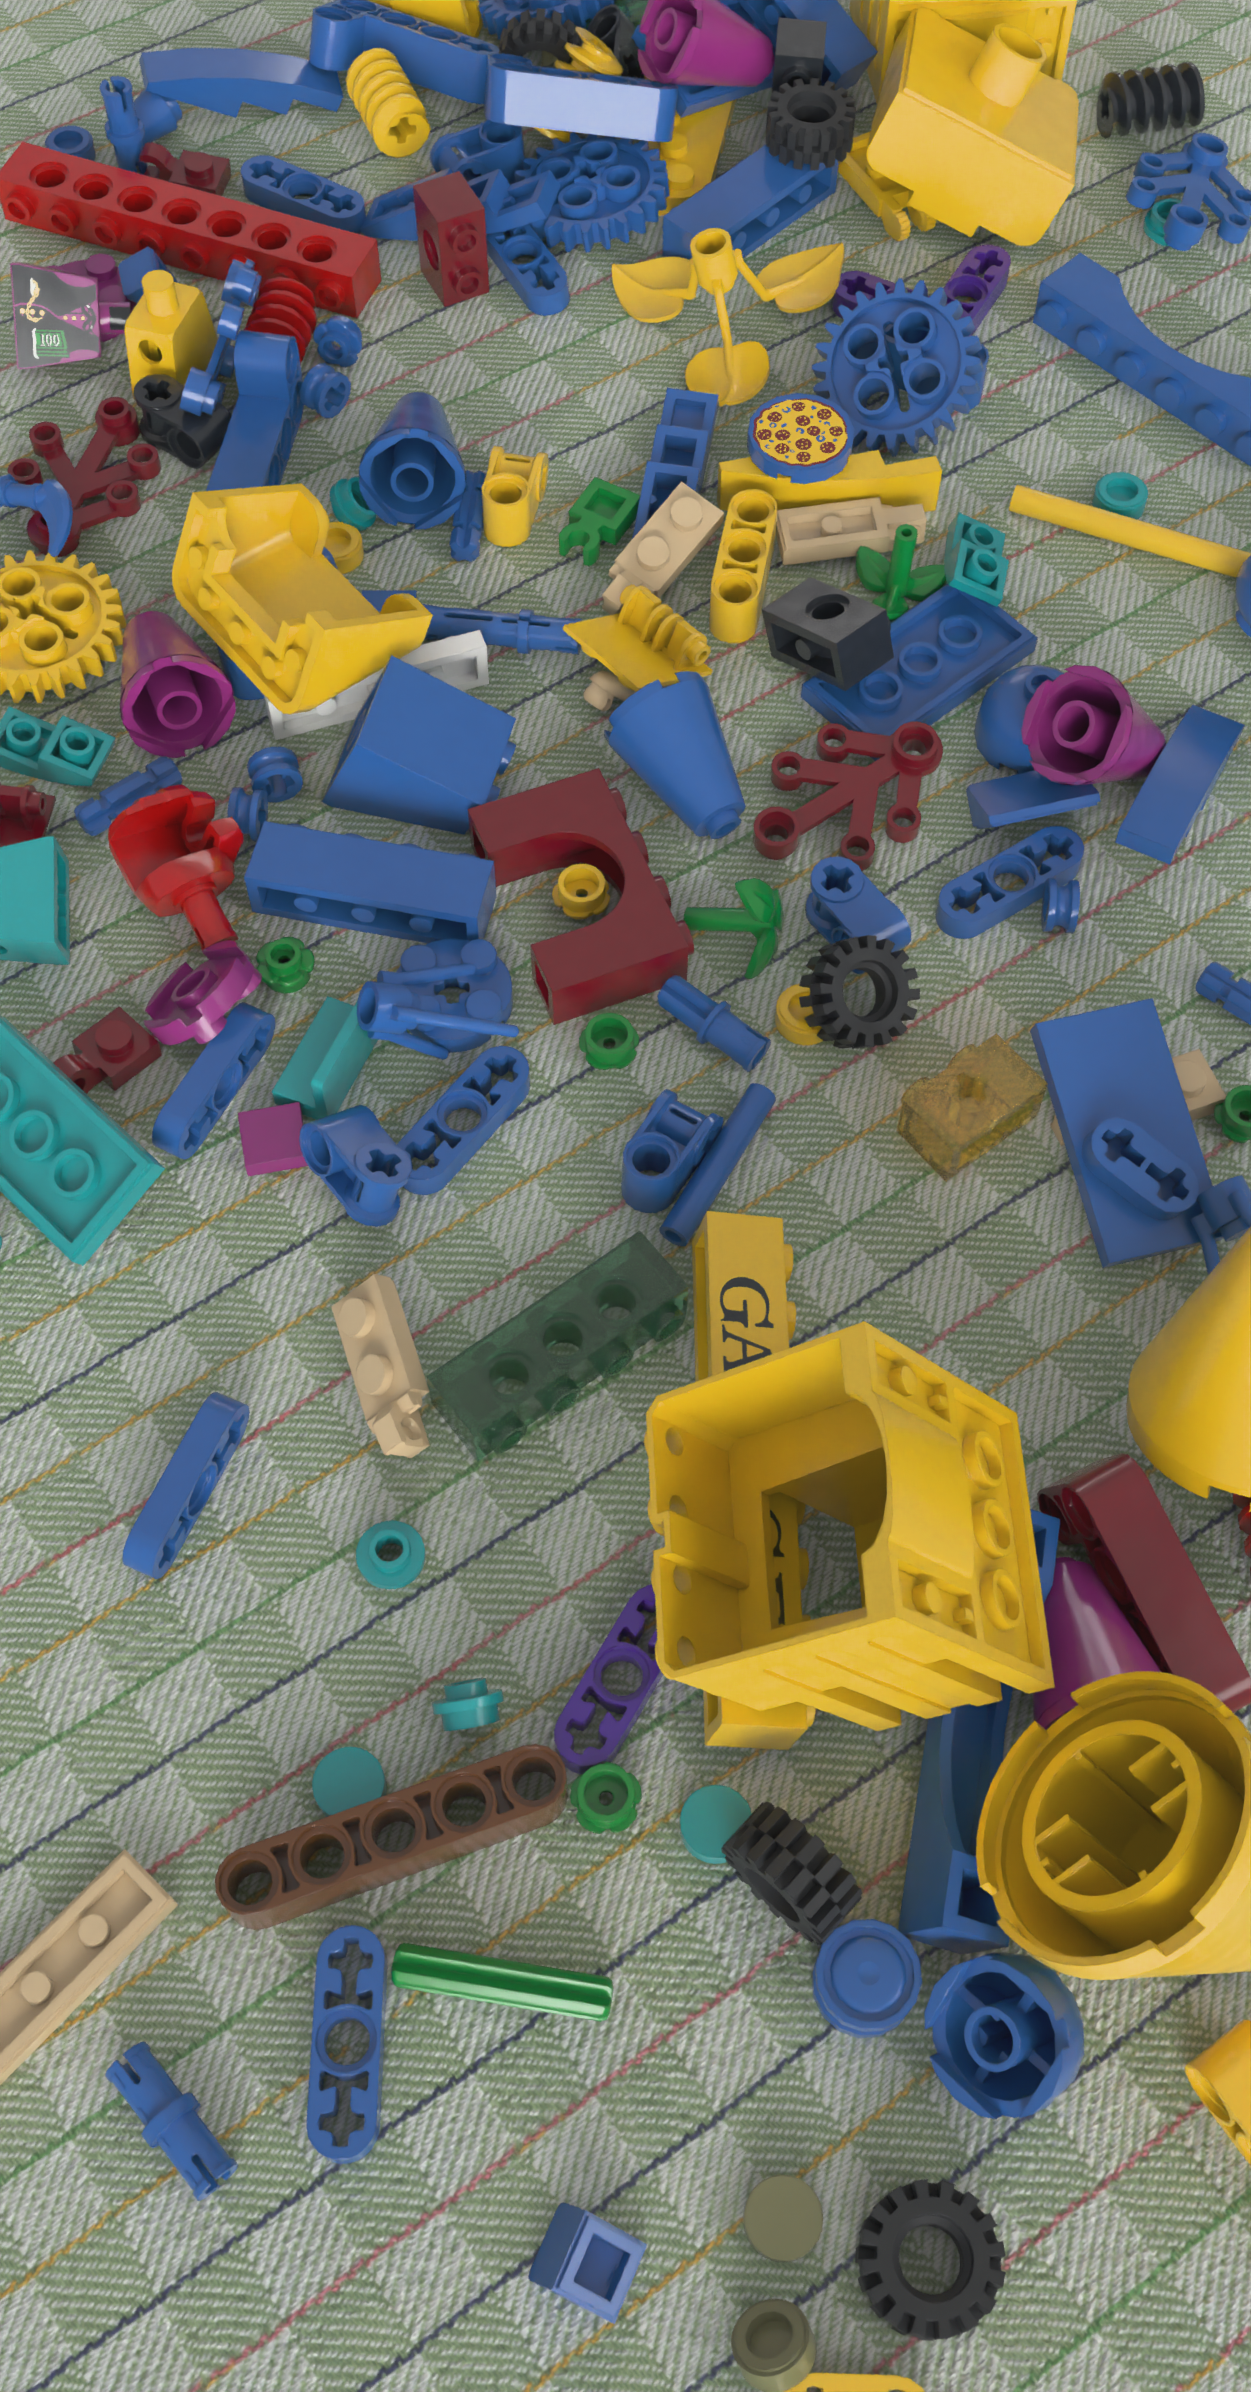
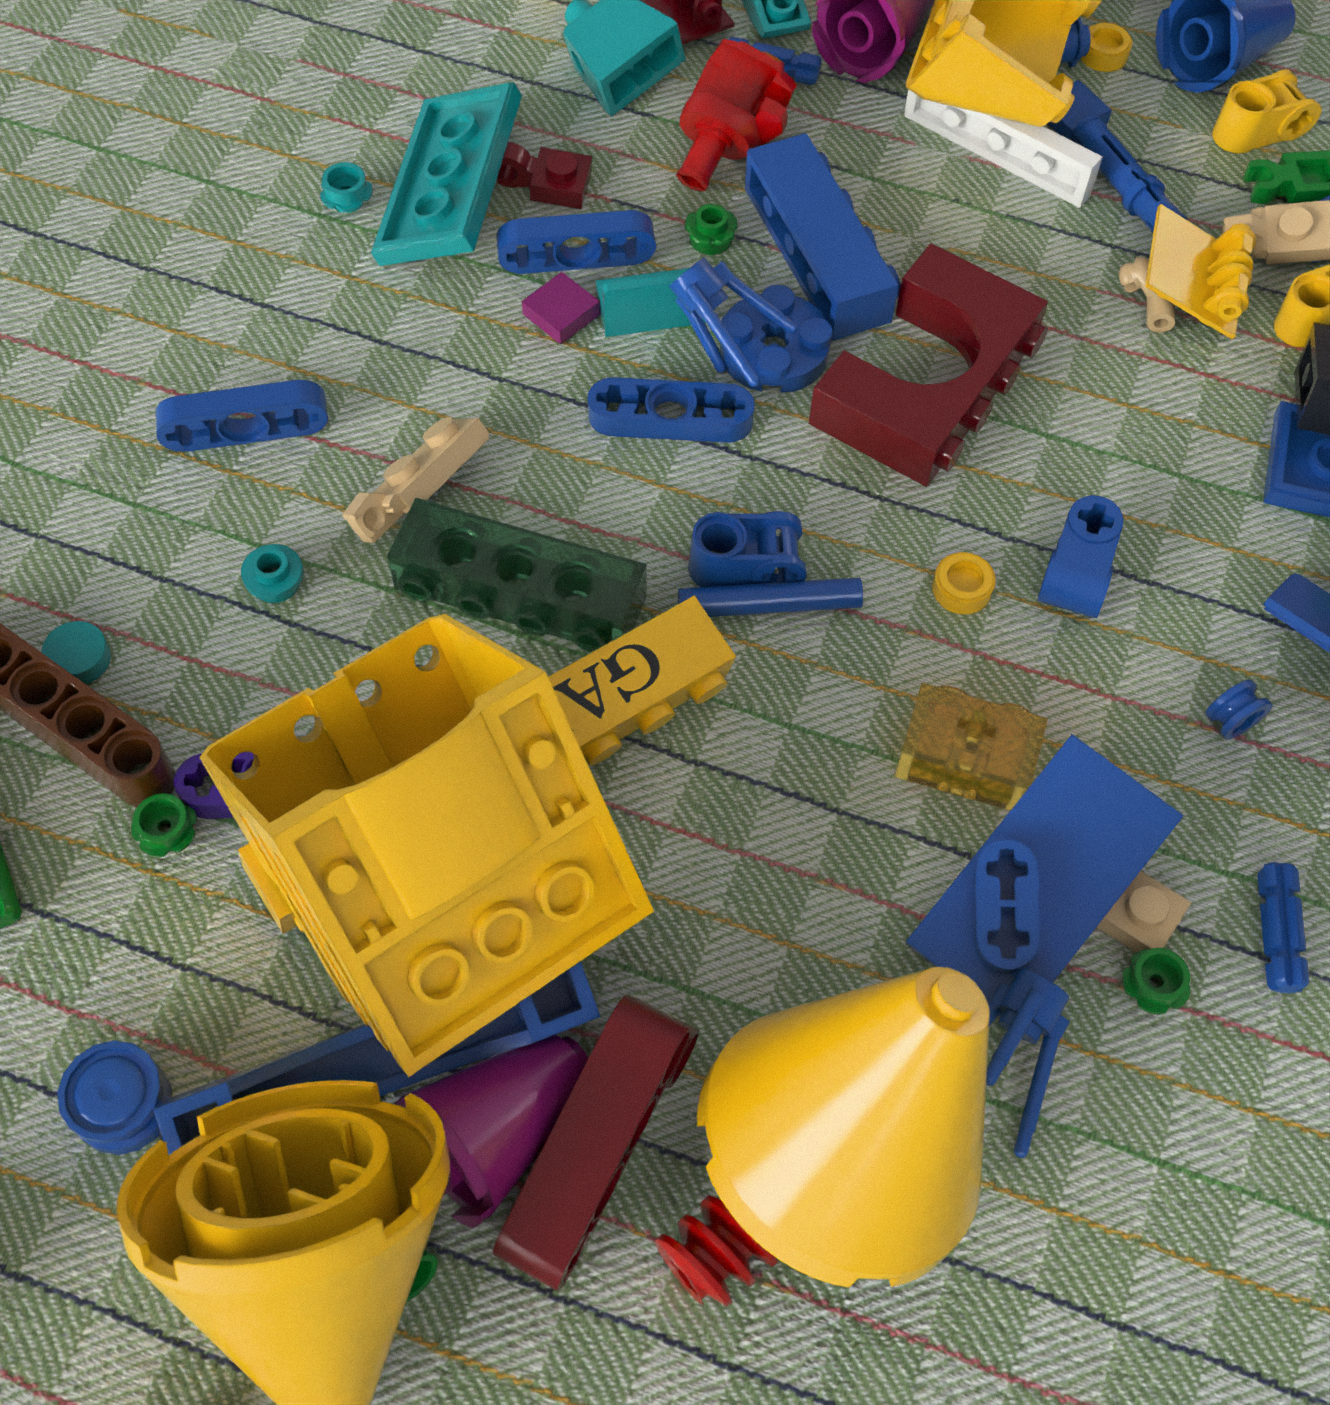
camera: 55 degrees right, 0 degrees up
(195, 1000) = (632, 185): magenta plate -> none
(248, 810) = (819, 125): blue bush -> none
(275, 772) = (864, 125): blue bush -> none
(350, 505) = (1138, 28): teal plate -> none
(357, 1163) = (572, 363): blue piece -> none
(421, 752) = (962, 186): blue slope -> none
(468, 520) = (1204, 107): blue axle -> none
(468, 1705) = (179, 687): teal plate -> none
(581, 880) = (936, 363): yellow plate -> none
(609, 1029) = (817, 450): green plate -> none
(680, 752) = (1121, 346): blue cone -> none
(710, 1820) = (189, 917): teal tile -> none
(713, 1022) = (893, 521): blue axle -> none
(760, 917) = (1015, 482): green plant -> none
(792, 1872) = (158, 982): black tyre -> none
(851, 786) = (1211, 492): dark red plant -> none
(890, 992) = (1012, 635): black tyre -> none
(998, 903) = (1254, 649): blue beam -> none
(1004, 2034) = (83, 1239): blue cylinder -> none

